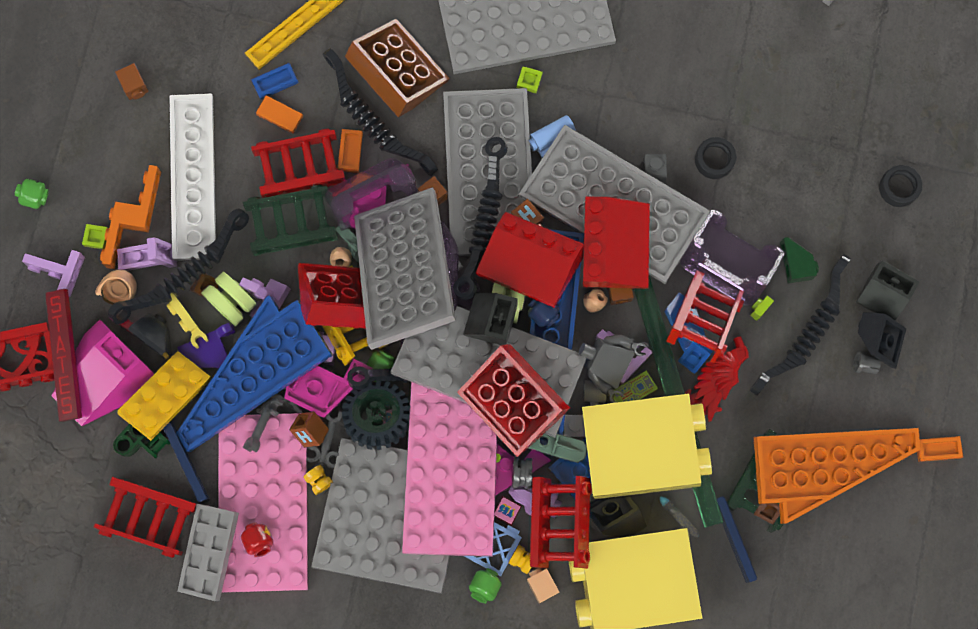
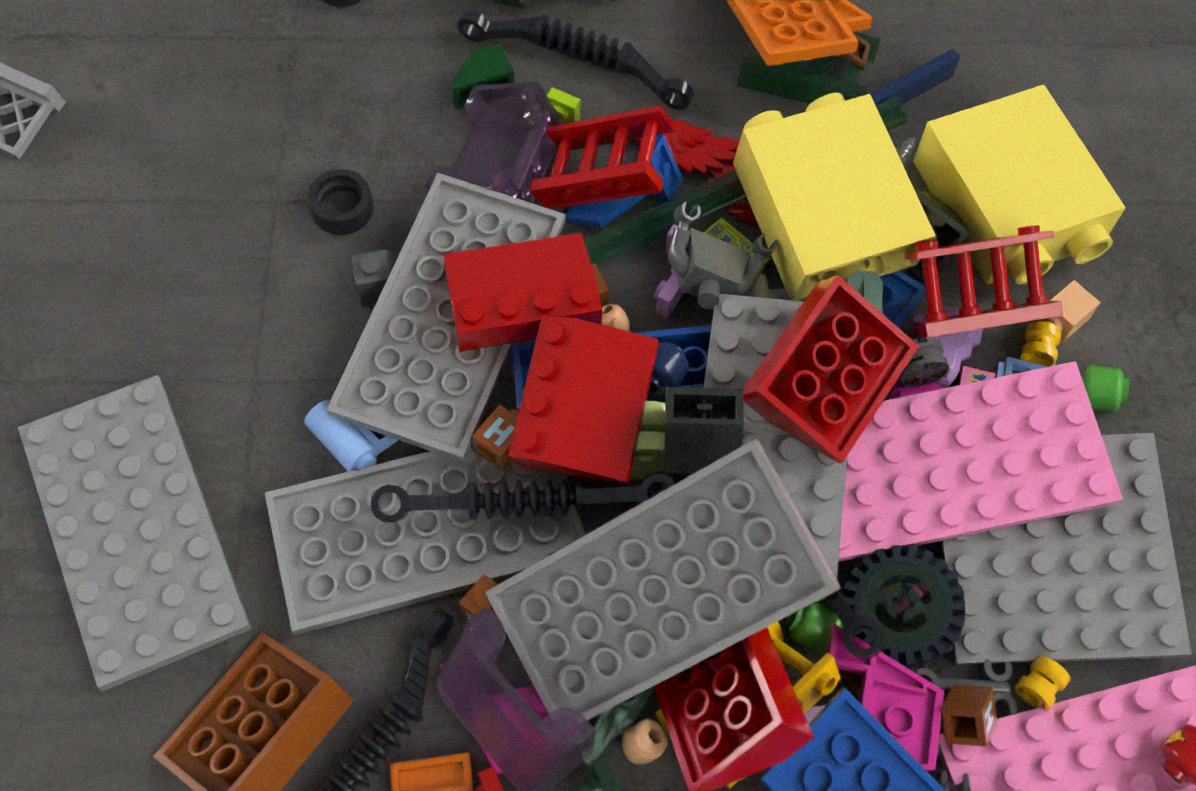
camera: 100 degrees left, 15 degrees down
(529, 79) = (246, 494): lime plate -> none

